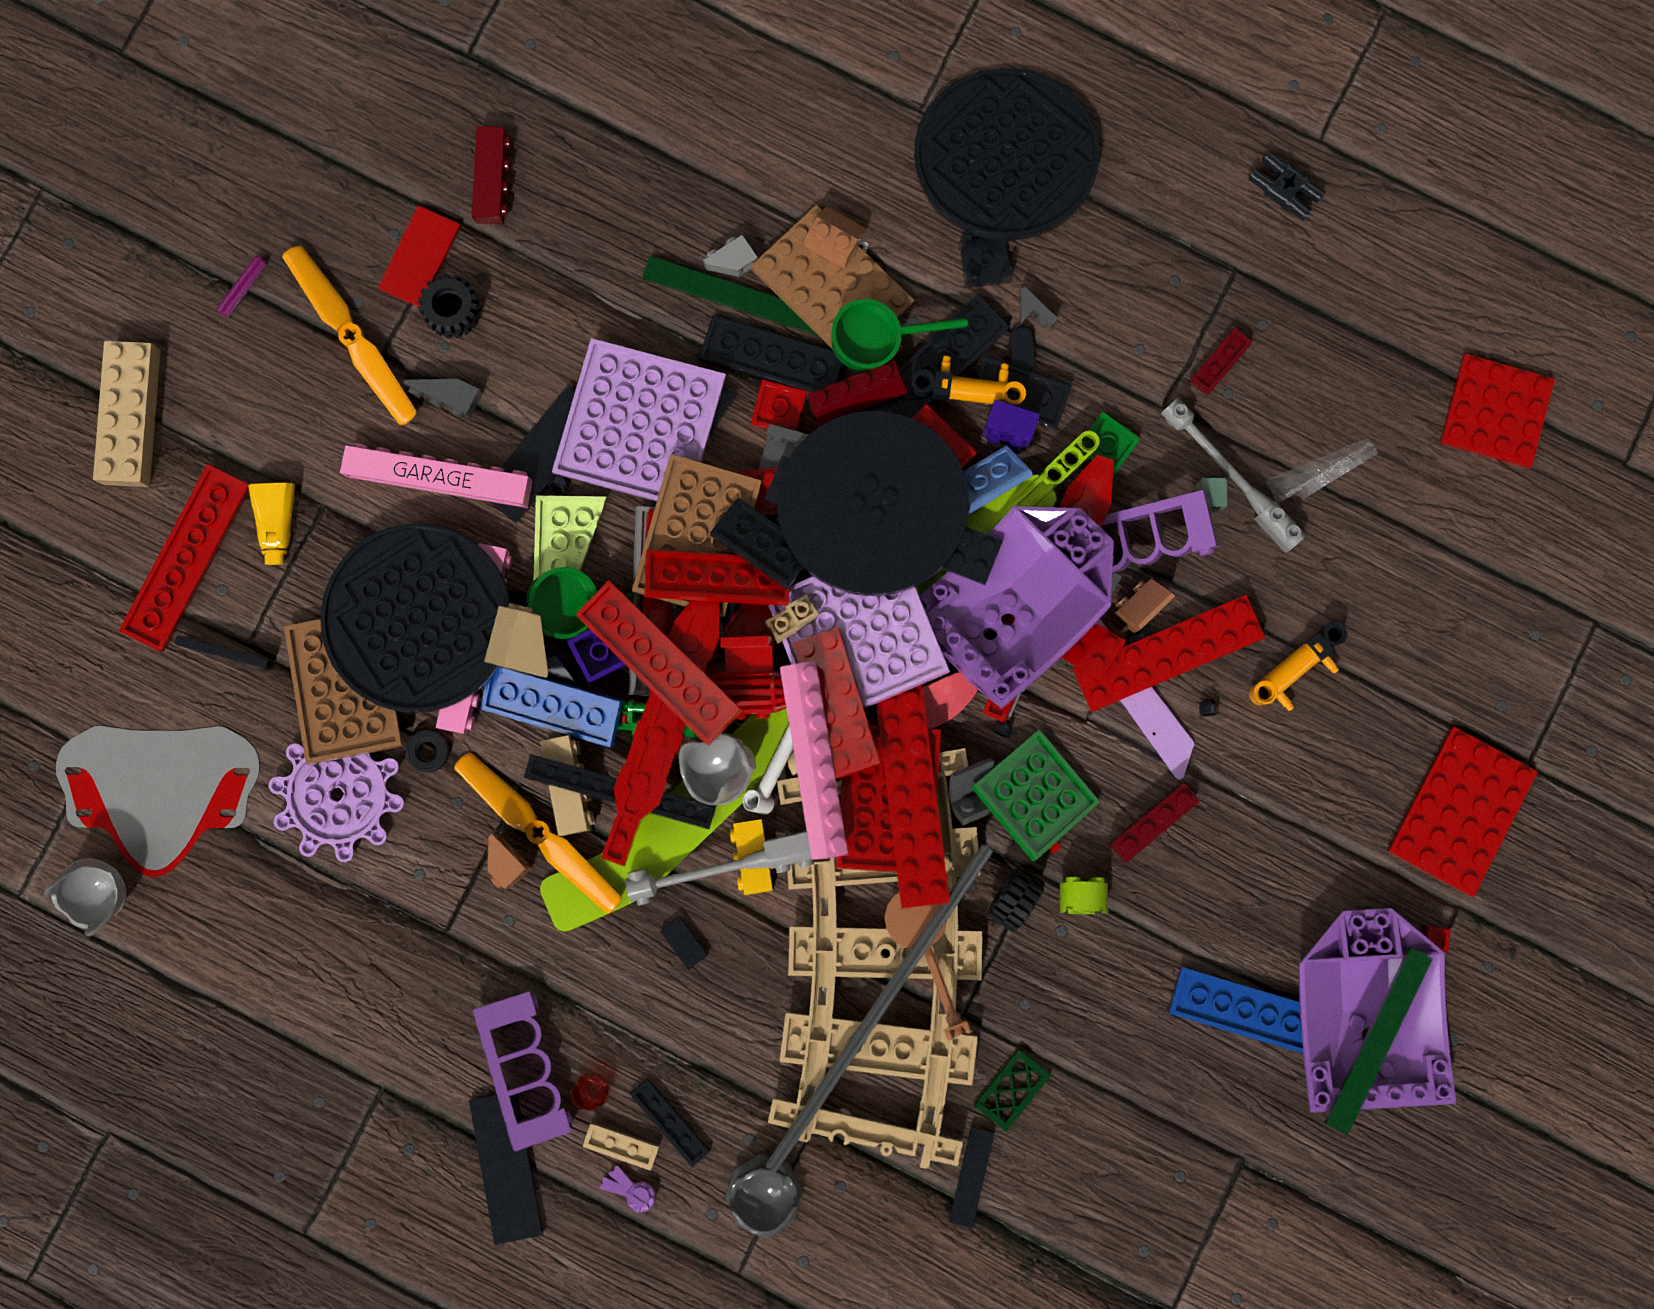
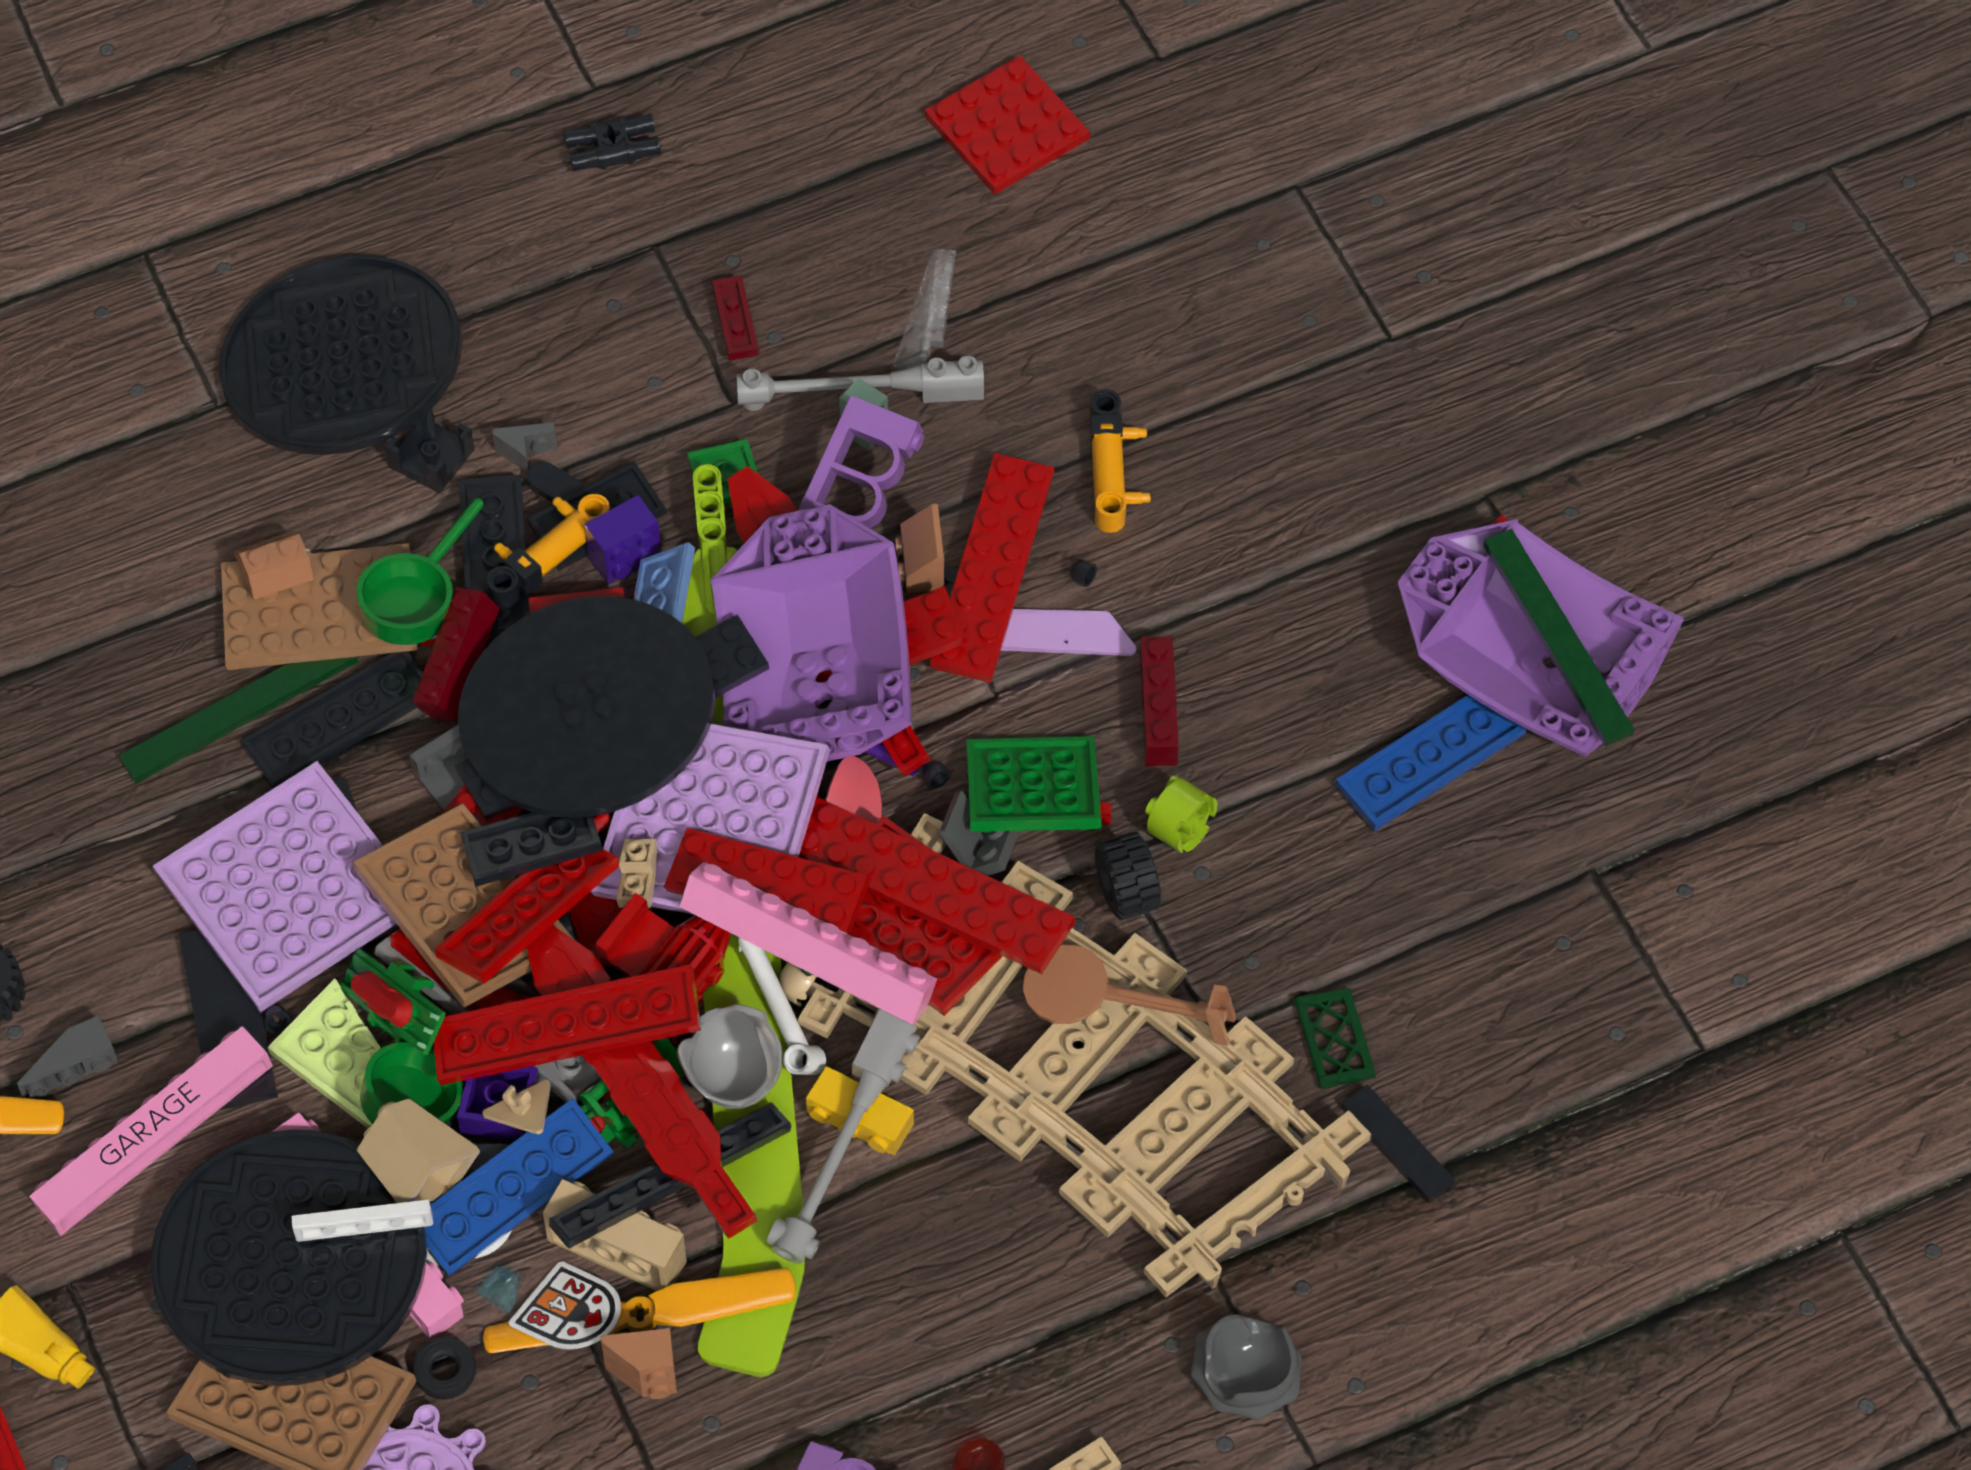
camera: 50 degrees left, 25 degrees down
(459, 645) = (362, 1220): none -> white tile
(496, 742) = (501, 1288): none -> clear light blue slope
(507, 796) = (569, 1309): none -> sticker
(596, 676) = (522, 1109): none -> tan piece
(608, 545) = (394, 1000): none -> green piece
(669, 1122) = (1083, 1412): black tile -> none
(684, 943) = (894, 1253): black tile -> none
(731, 259) = (201, 678): light grey slope -> none
(778, 406) = (390, 746): red tile -> none
(878, 1009) = (1134, 1089): dark grey axle -> none
(1462, 811) = (1389, 425): red plate -> none

